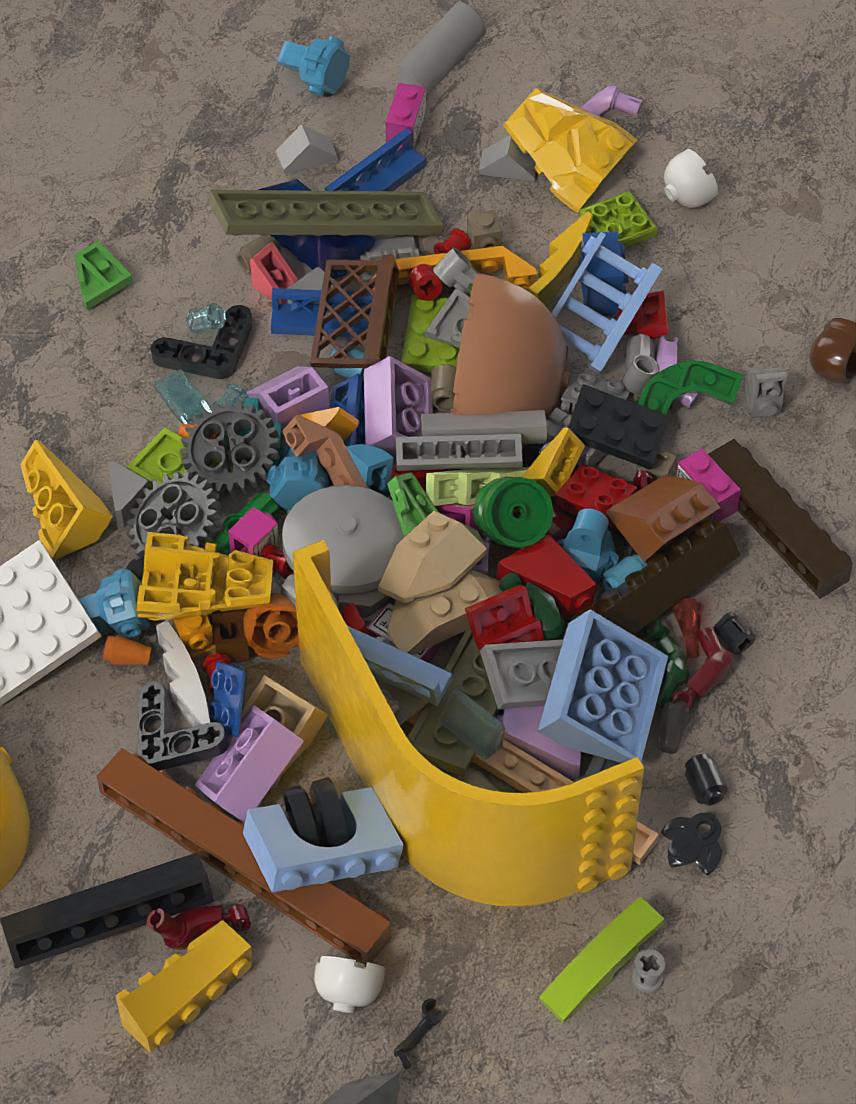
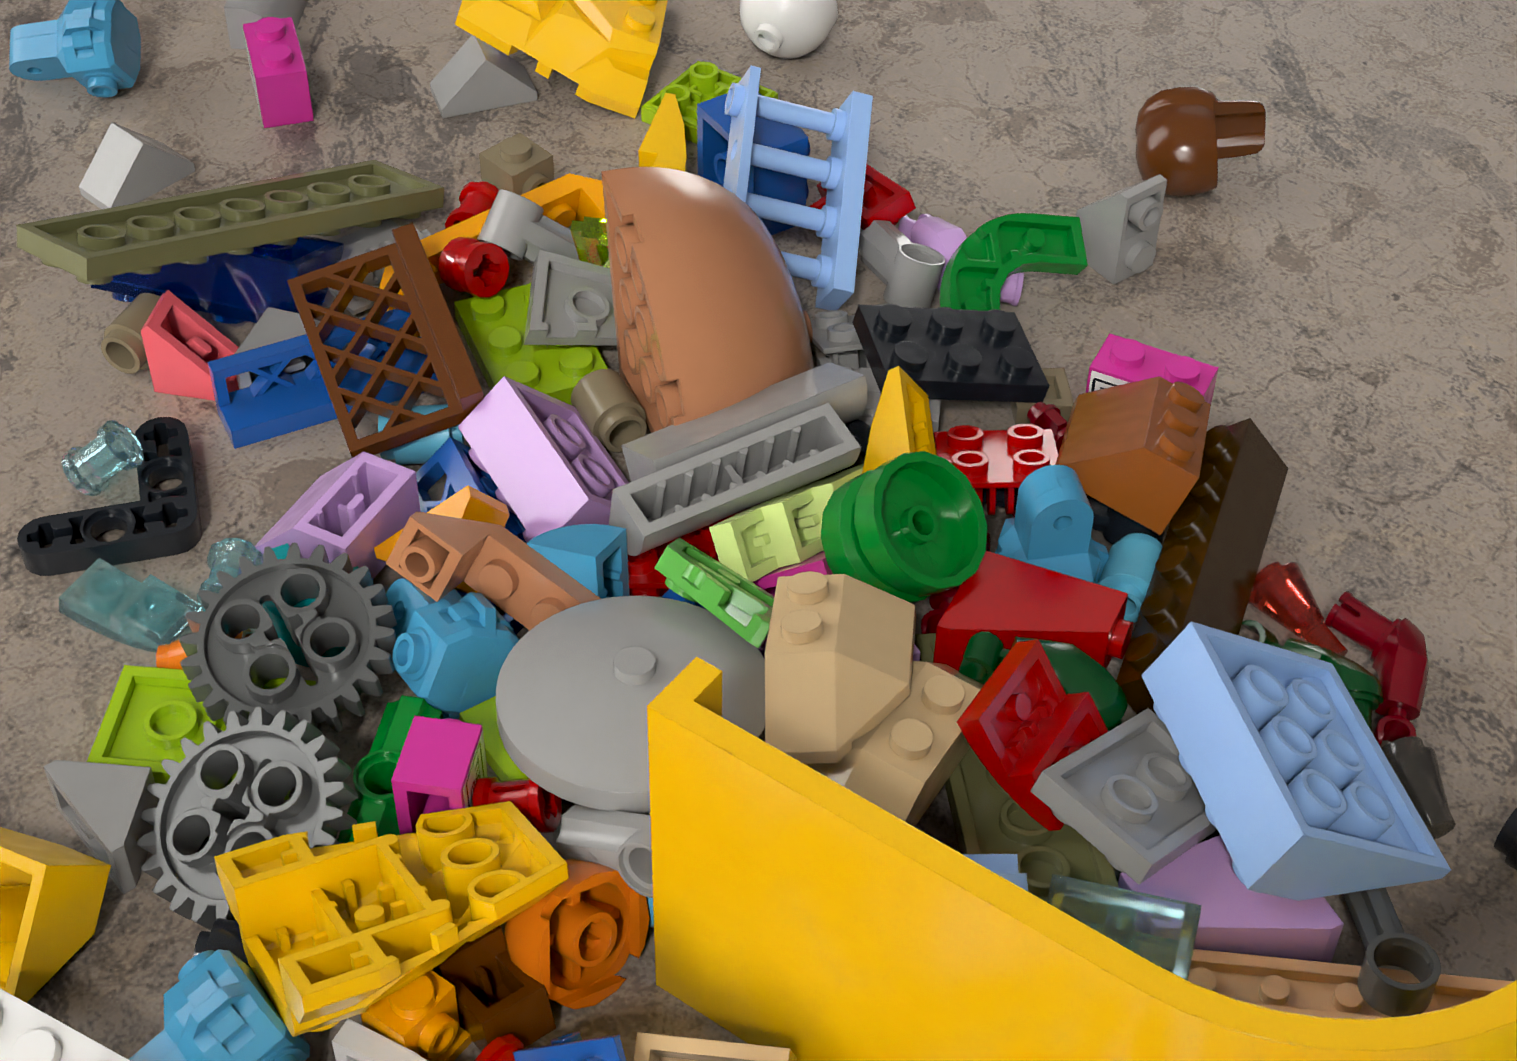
camera: 30 degrees left, 10 degrees down
(389, 174) = (288, 142): blue fence -> none
(734, 633) = (1379, 589): black bush -> none
(783, 522) = (1317, 402): dark brown brick -> none

